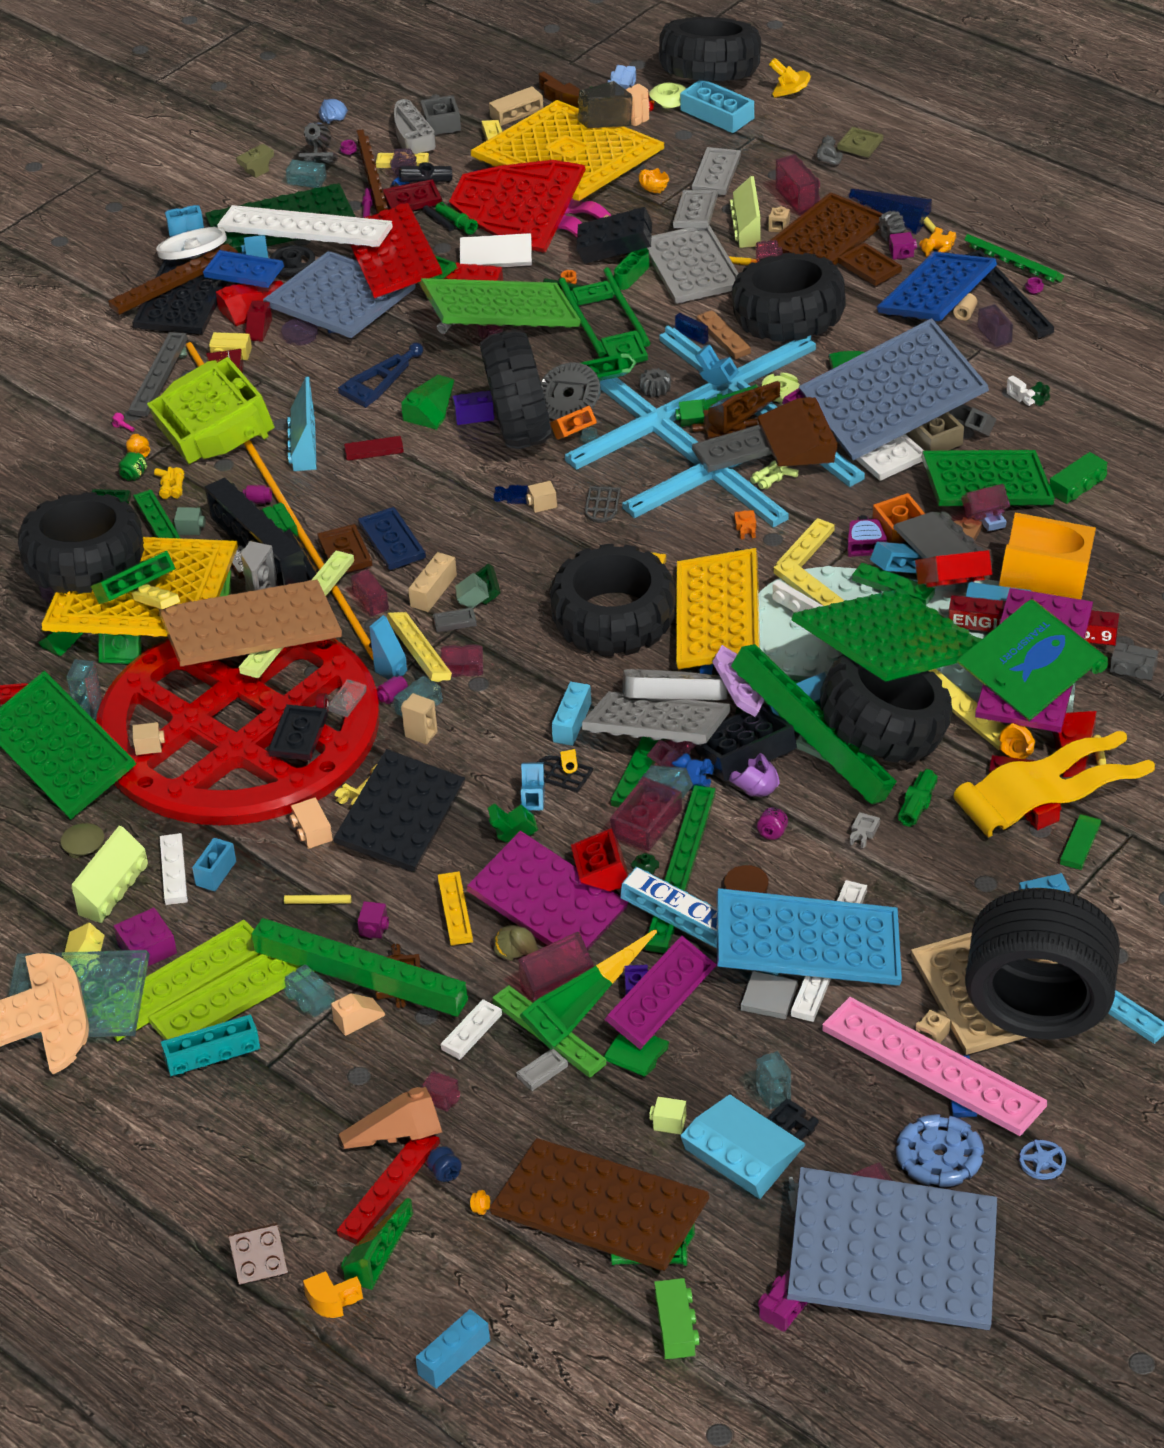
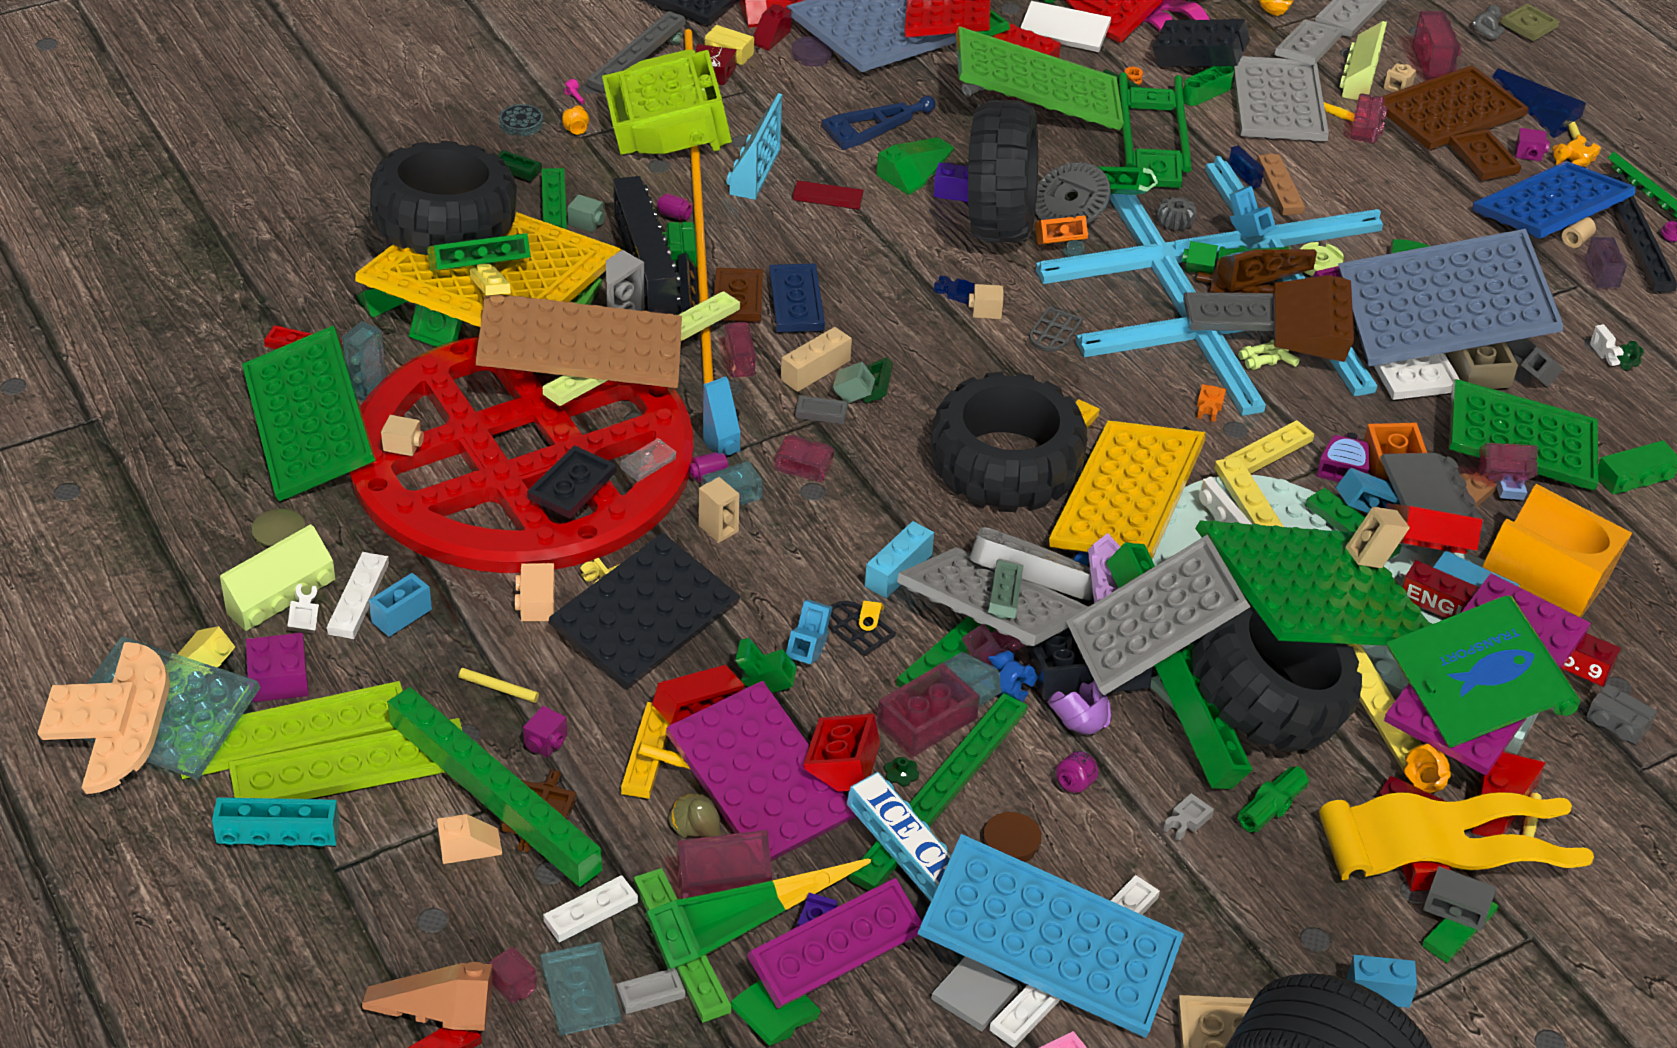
camera: 15 degrees right, 0 degrees up
(91, 459) = (521, 119): none -> clear light blue tile
(132, 466) = (558, 138): green head -> none
(141, 894) = (303, 614): none -> white plate
(172, 477) = (590, 167): yellow piece -> none
(309, 991) = (426, 793): clear light blue brick -> none
(322, 701) = (616, 454): dark red tile -> none
(419, 646) = (762, 427): light yellow plate -> none
(471, 907) = (664, 755): none -> yellow piece
(472, 856) = (694, 692): none -> red brick
(491, 1084) = (580, 988): none -> clear light blue tile
(666, 709) = (1005, 589): none -> sand green plate
(788, 296) = (1370, 161): black tyre -> none
(788, 691) = (1156, 614): none -> light grey plate
(891, 223) = (1527, 116): dark grey gear -> none
(919, 586) = (1377, 537): none -> tan brick
(1074, 822) = (1460, 898): none -> dark grey brick

